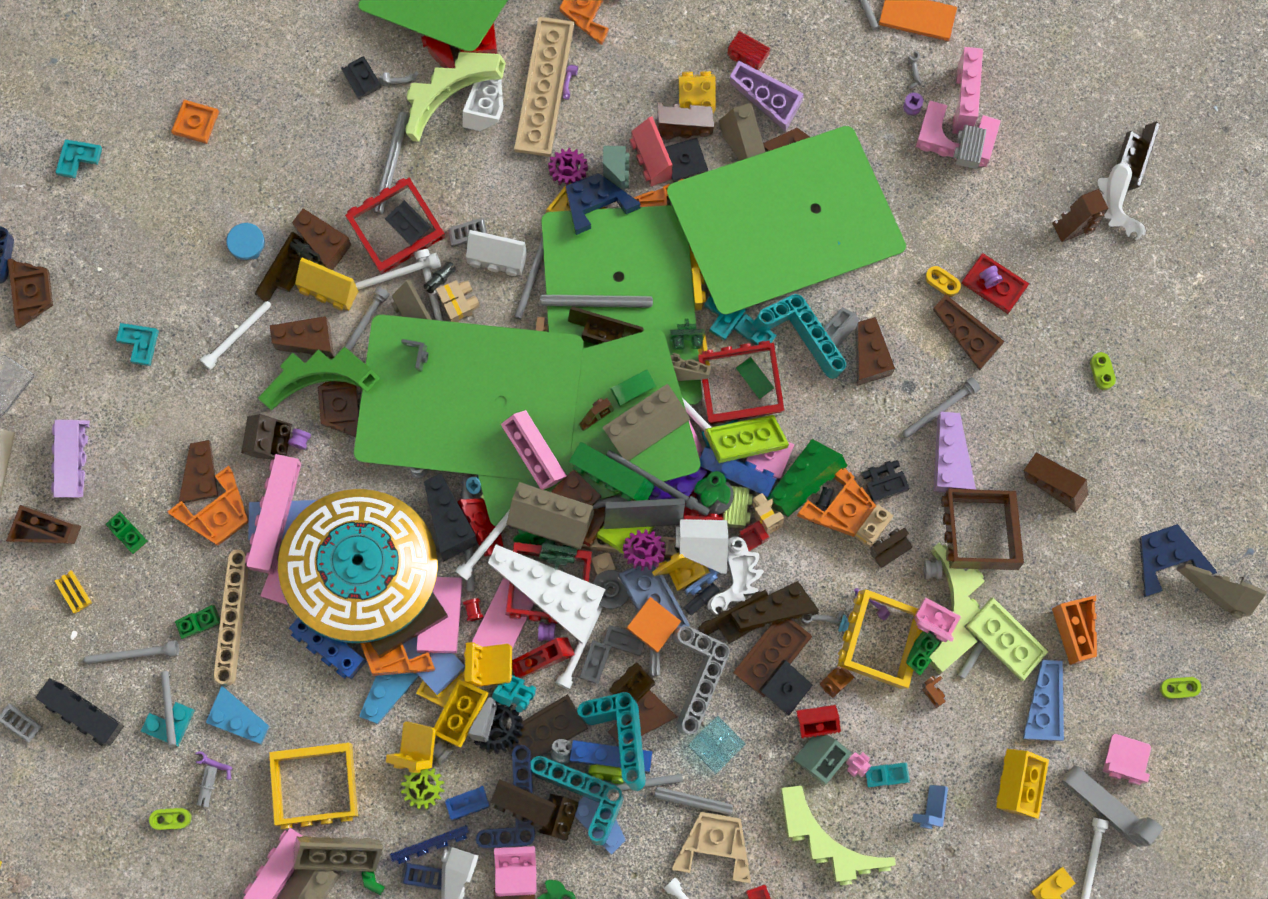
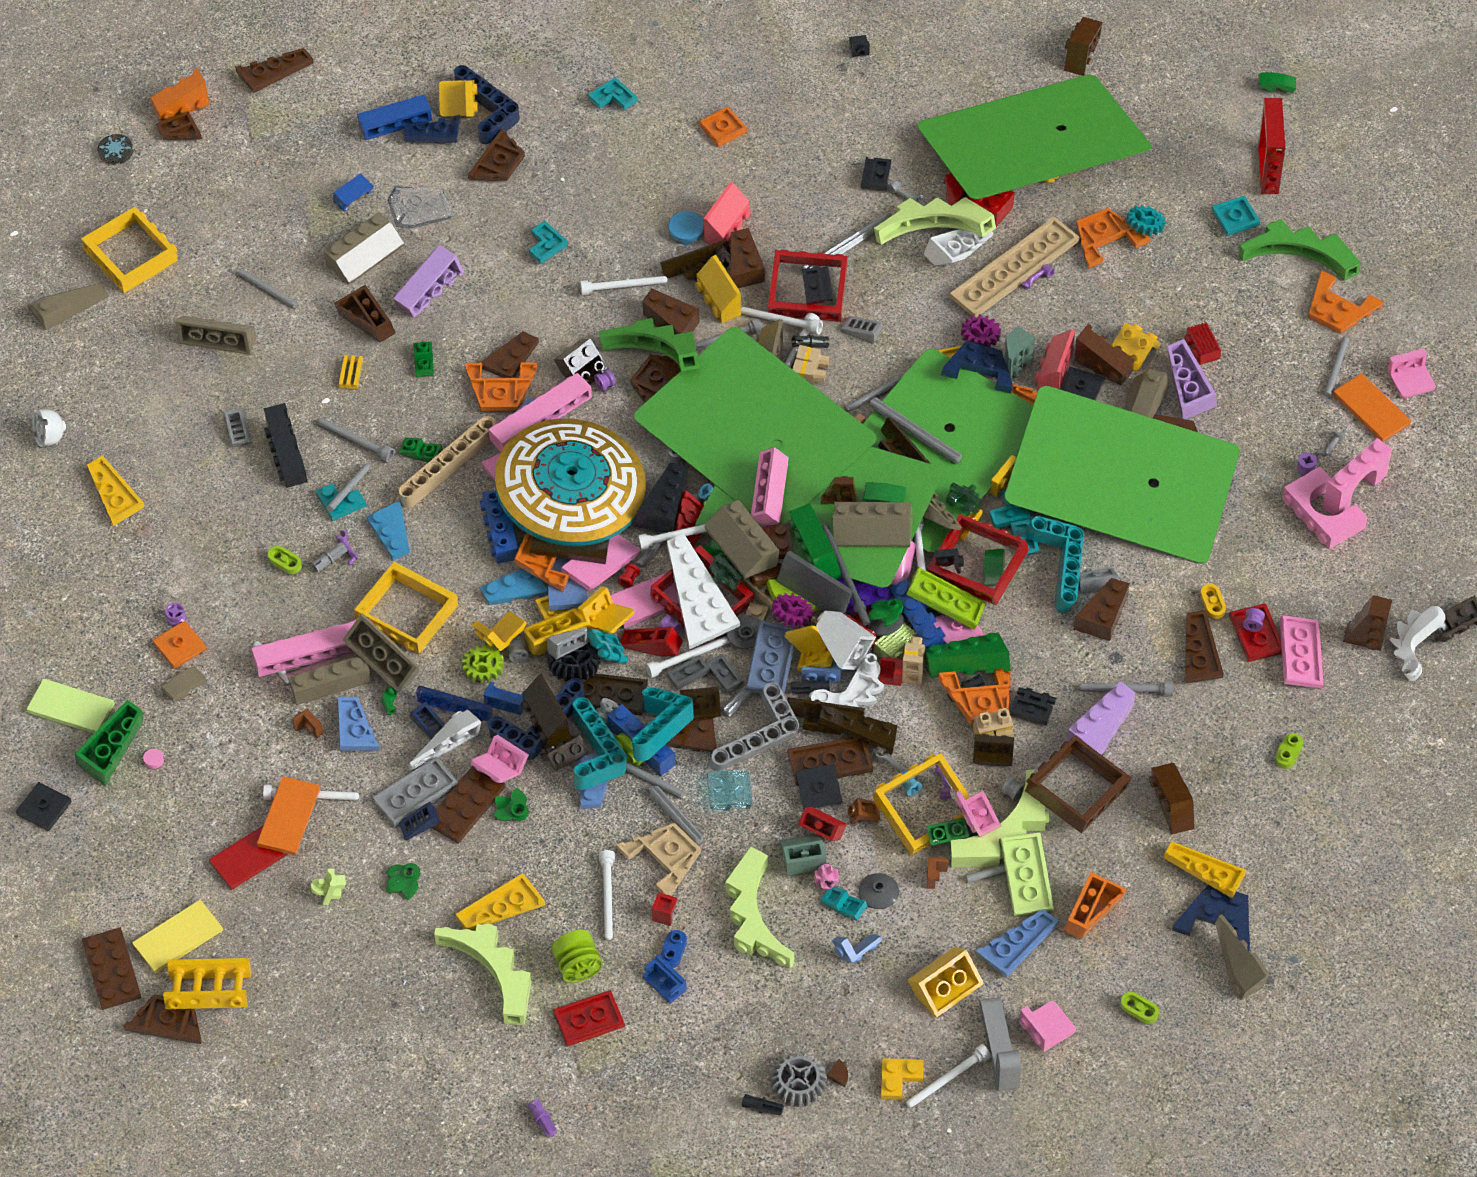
camera: 40 degrees right, 20 degrees down
(274, 209) = (726, 215): none -> coral slope
(422, 354) = (743, 371): dark grey bracket -> none
(496, 253) = (868, 351): white slope -> none
(653, 624) = (754, 670): orange tile -> none
(722, 403) = (949, 557): none -> black bracket
(896, 748) = (882, 897): none -> dark grey dish
(970, 146) = (1320, 515): light grey brick -> none
(1043, 276) = (1301, 652): none -> bright pink tile
(1136, 524) = (1210, 870): none -> yellow wing

